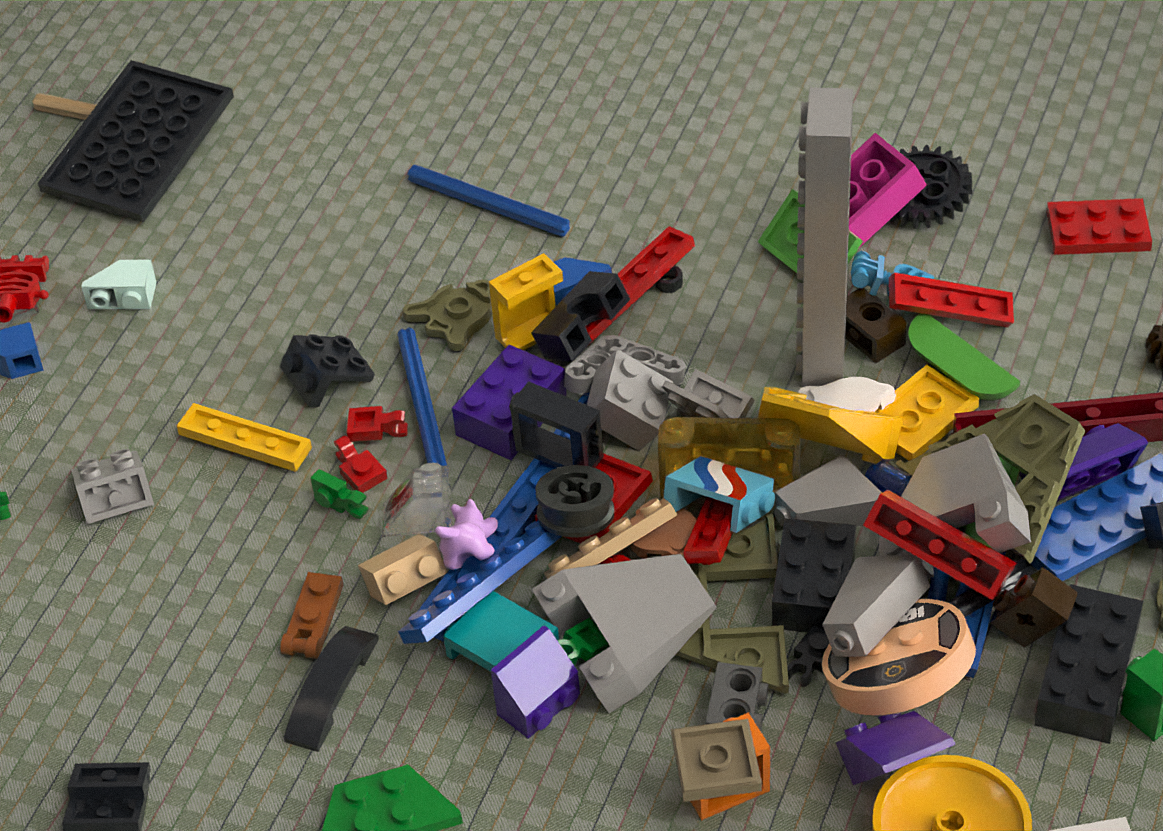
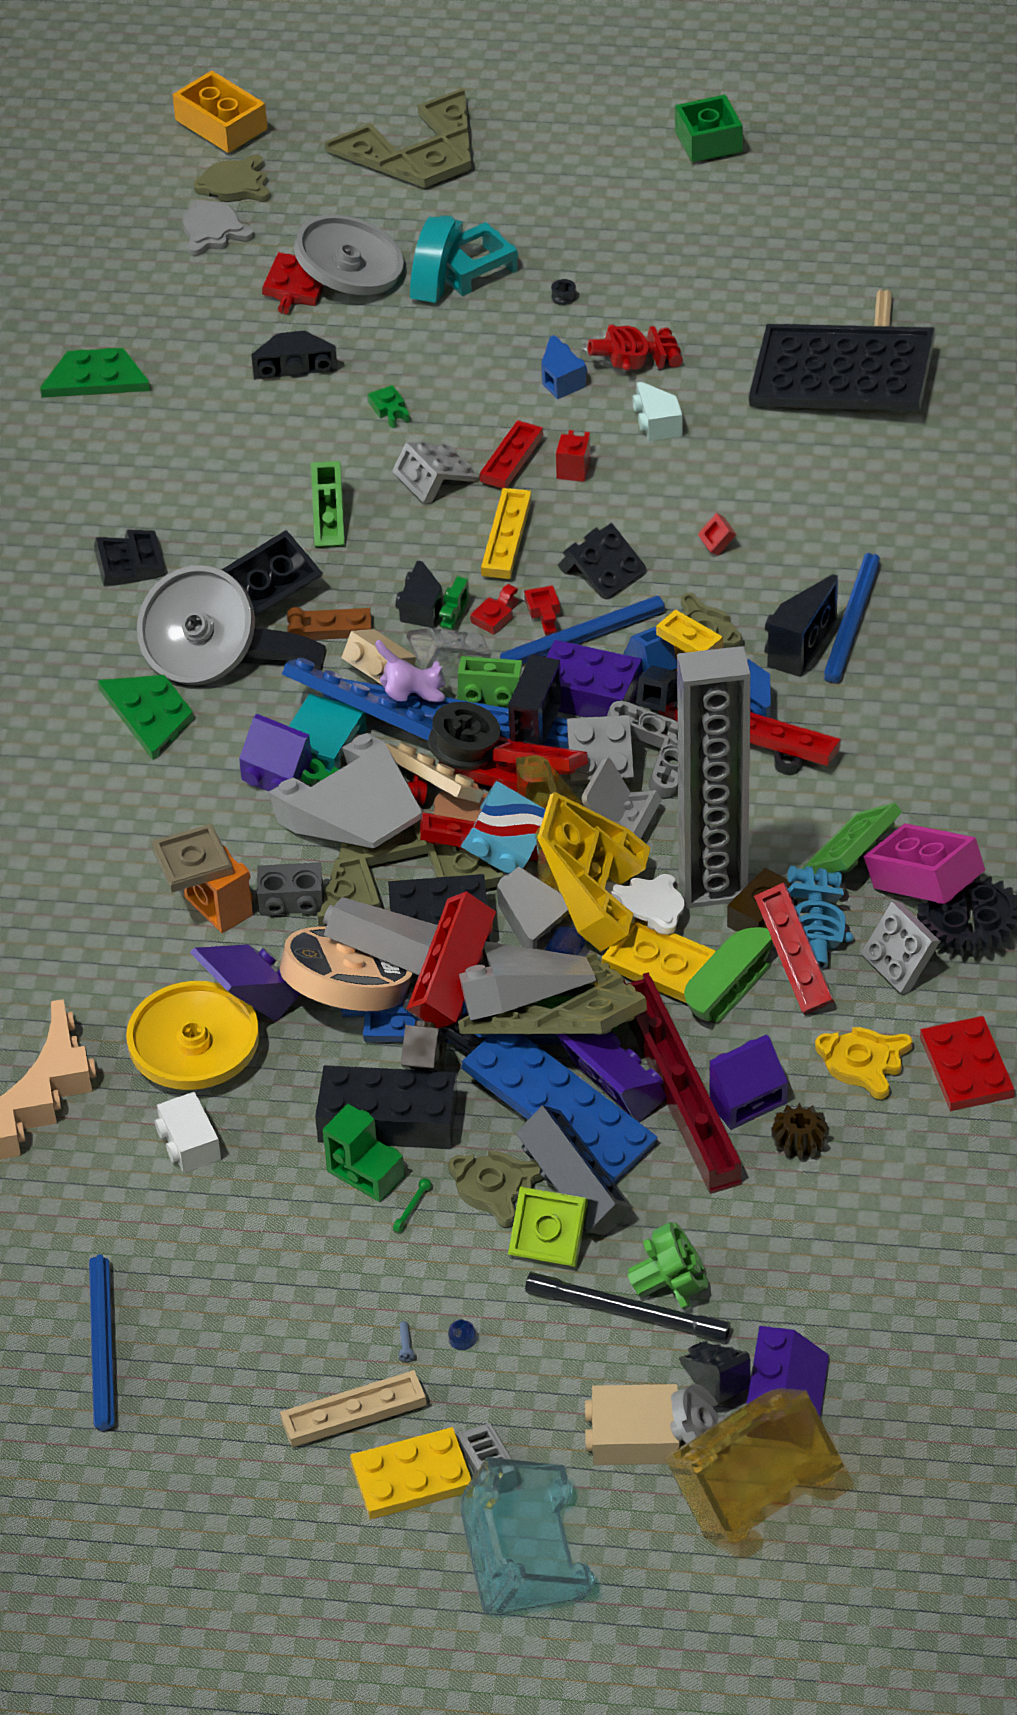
camera: 75 degrees right, 0 degrees up
(120, 583) = (327, 504): none -> bright green slope
(121, 414) = (511, 454): none -> red plate
(157, 360) = (573, 457): none -> red brick
(234, 668) = (274, 571): none -> black slope
(291, 725) = (195, 625): none -> light grey dish
(314, 521) = (420, 598): none -> black slope
(330, 271) = (717, 534): none -> red plate
(484, 475) = (488, 680): none -> bright green brick
(490, 336) = (652, 650): none -> blue slope
(509, 221) = (801, 626): none -> black slope
(634, 438) = (562, 759): none -> red plate
(946, 223) = (908, 945): none -> light grey plate
(1078, 293) = (863, 1057): none -> yellow tile
(1113, 364) = (747, 1082): none -> dark purple slope

